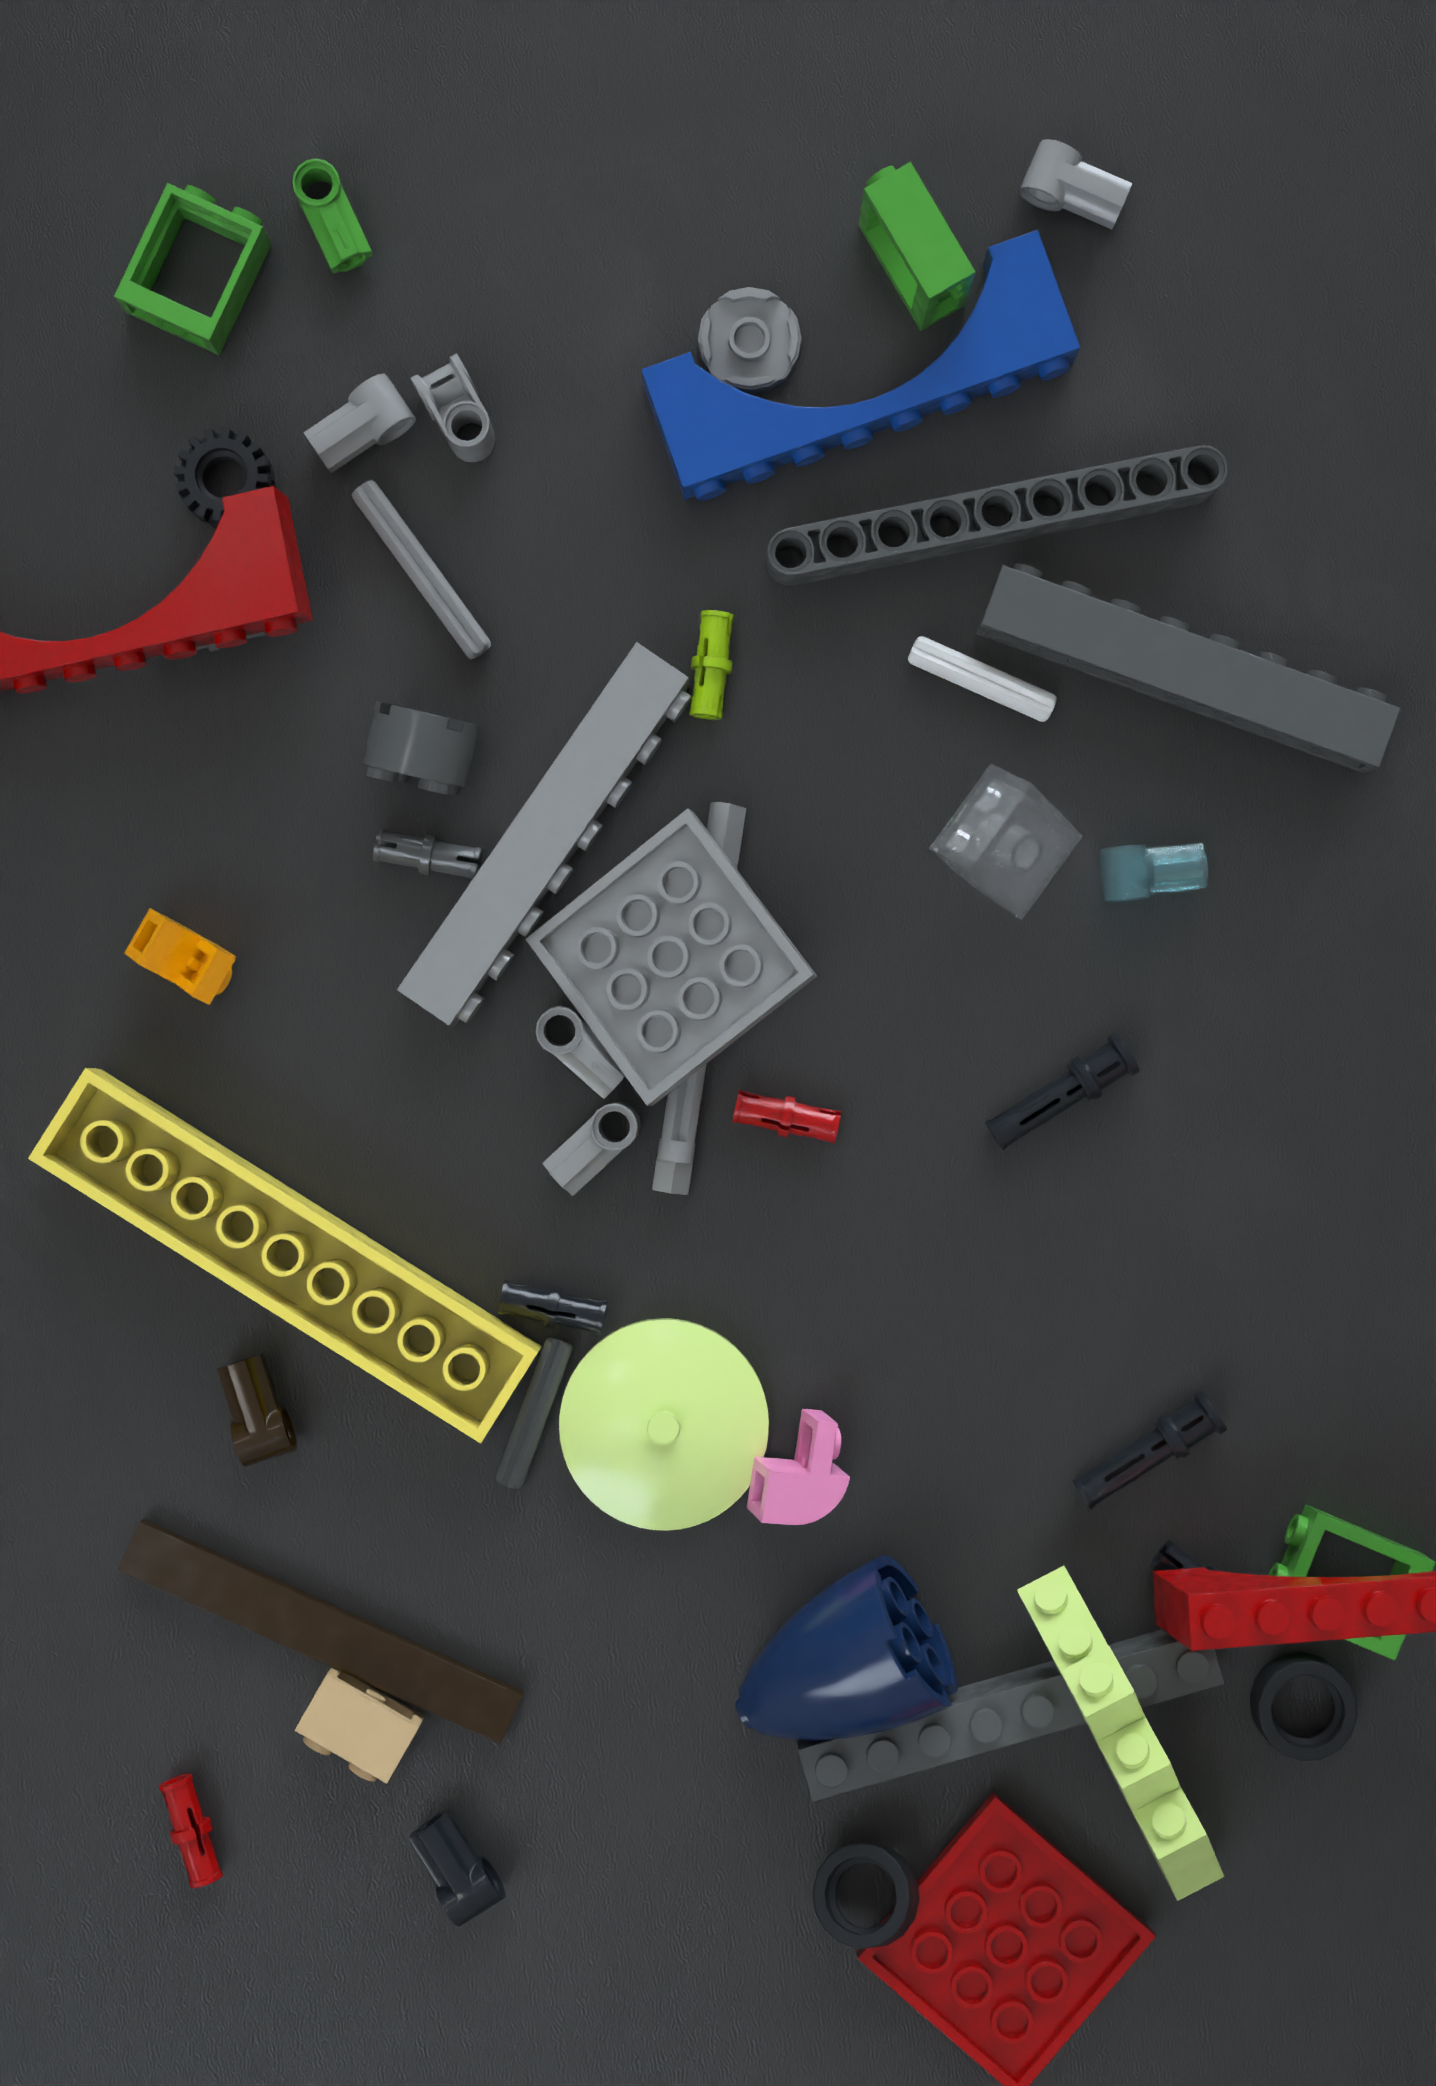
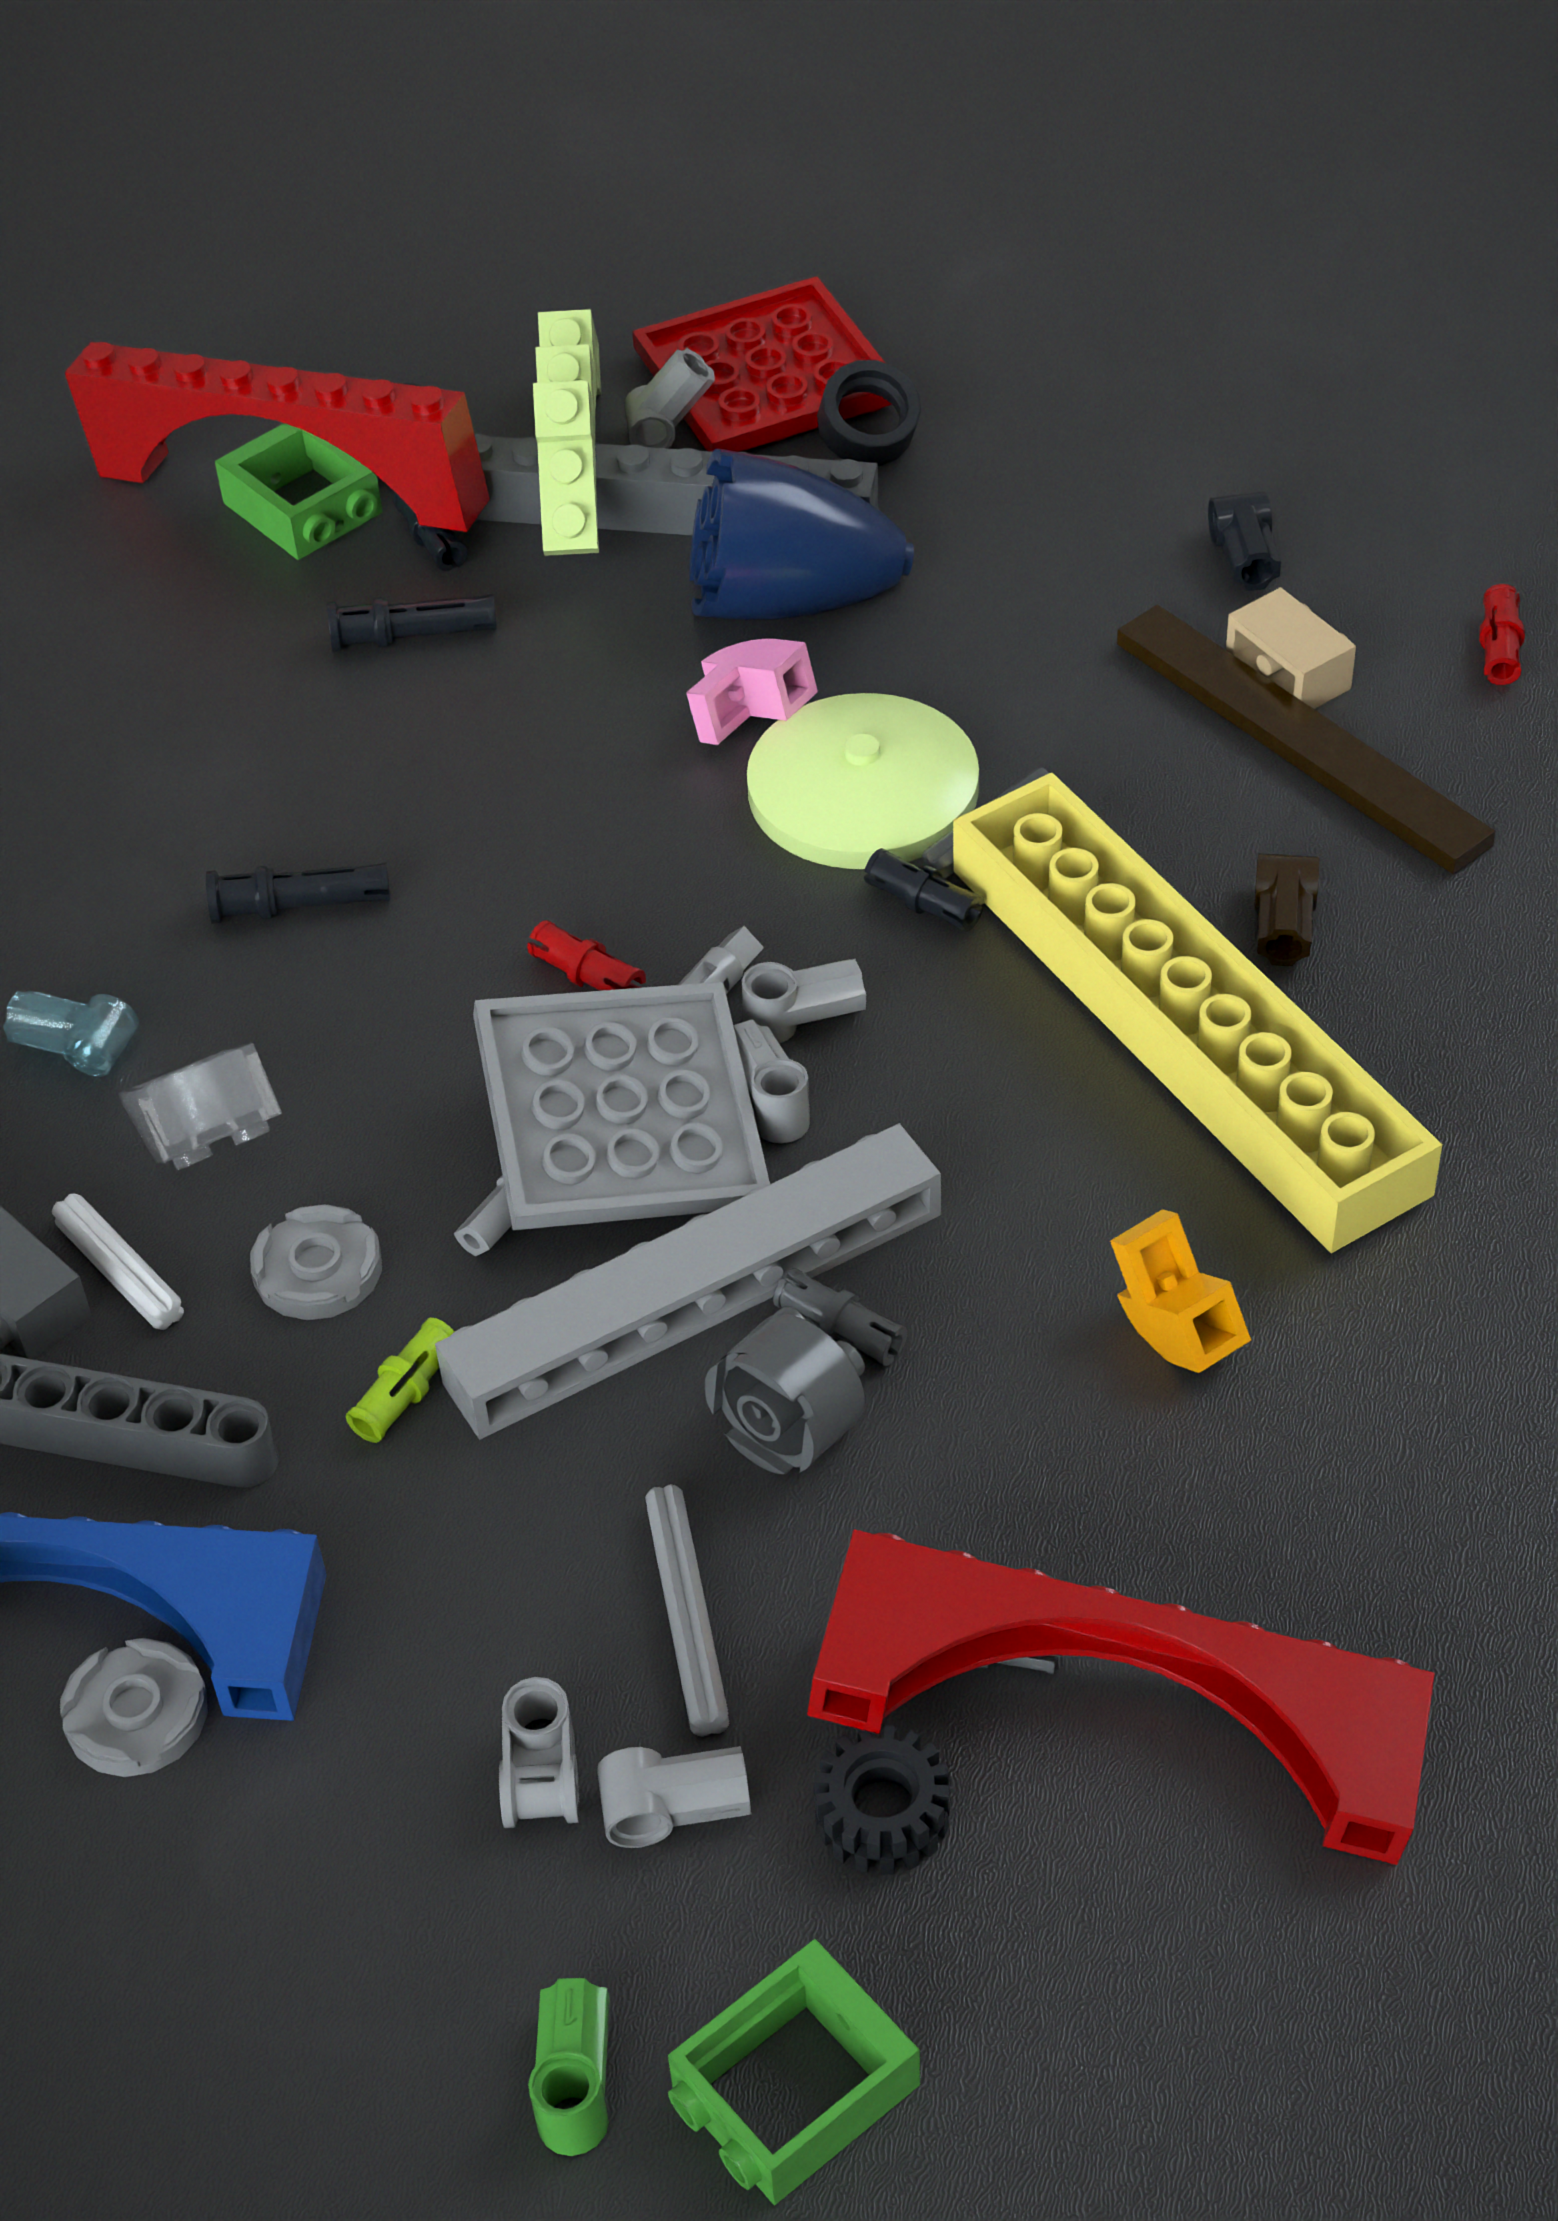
camera: 150 degrees left, 40 degrees down
(837, 745) = (316, 1262): none -> light grey tile
(1068, 1826) = (658, 407): none -> light grey piece

